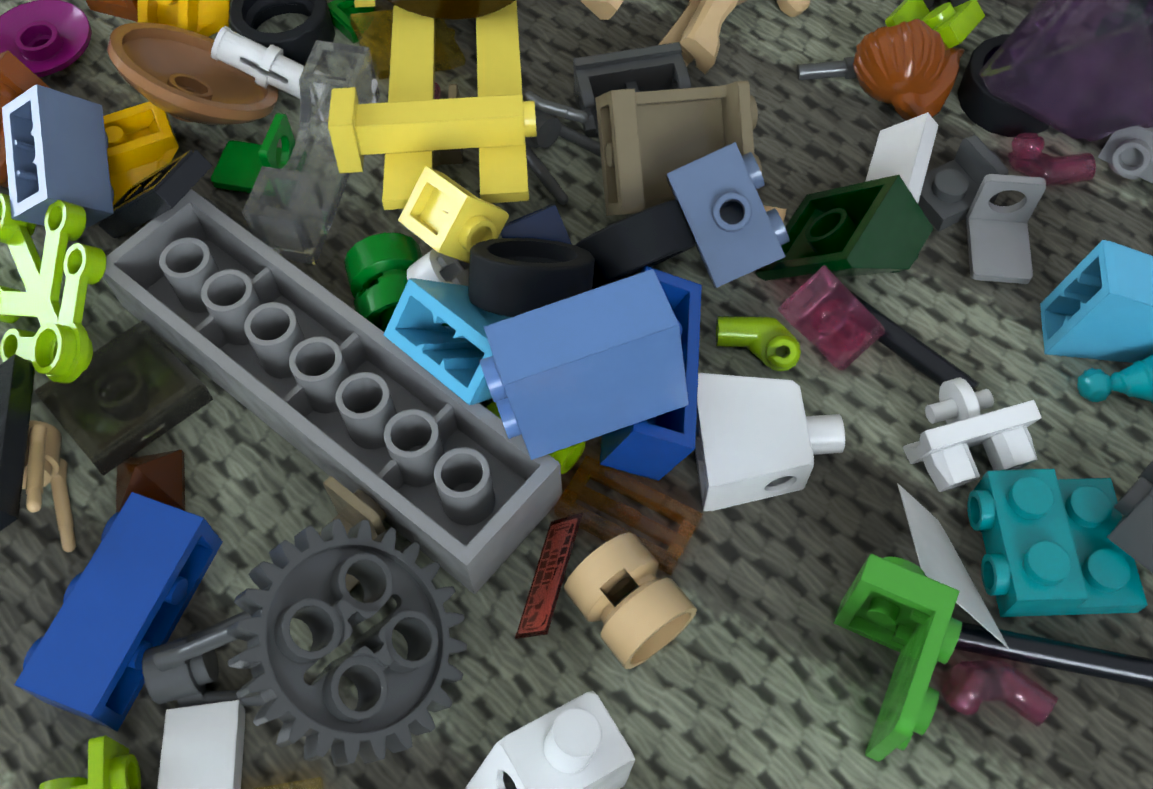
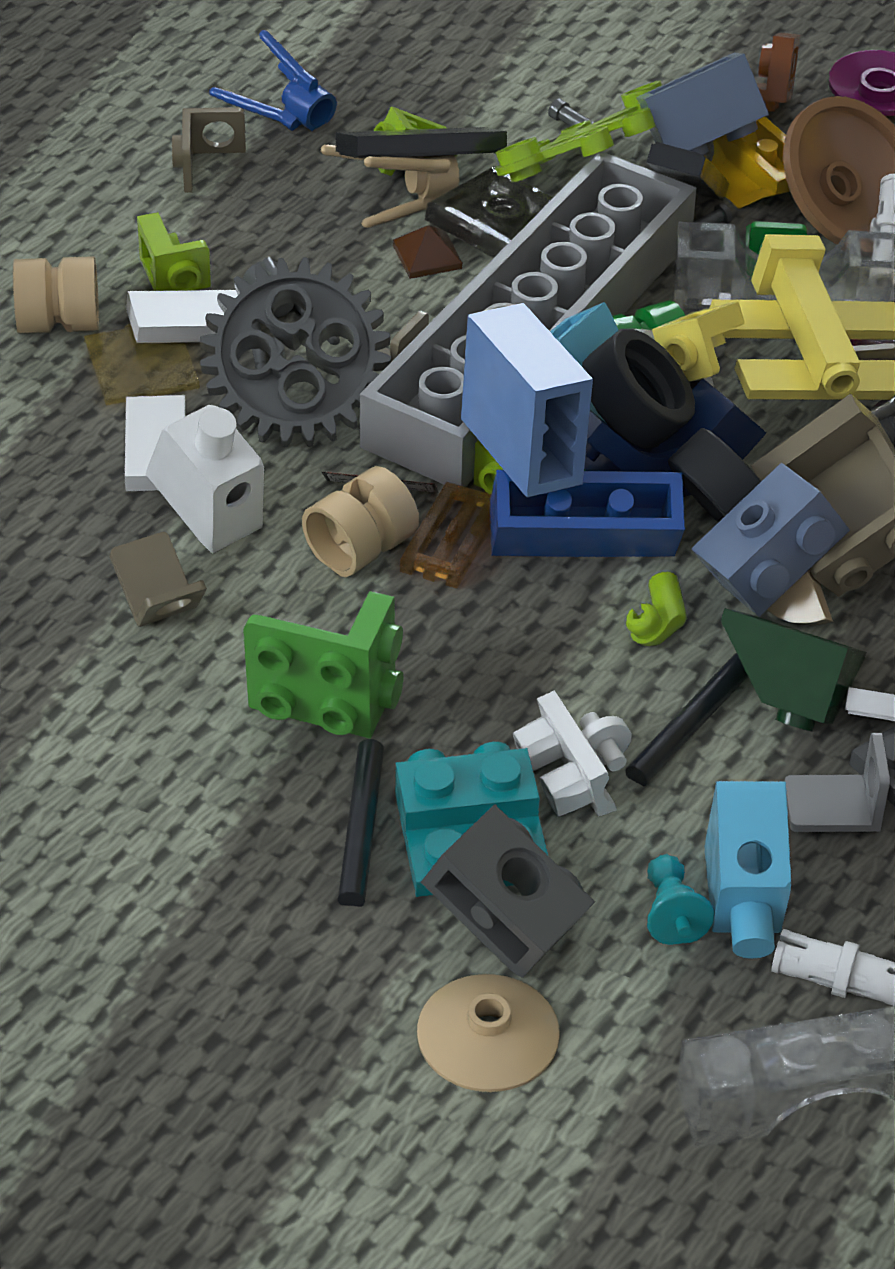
camera: 80 degrees right, 15 degrees down
(118, 609) = (350, 242): blue brick -> none
(757, 439) = (535, 597): white torso -> none
(832, 318) = (691, 640): clear pink bracket -> none
(942, 562) = (428, 711): white sticker -> none
(996, 681) = (327, 774): clear pink arm -> none

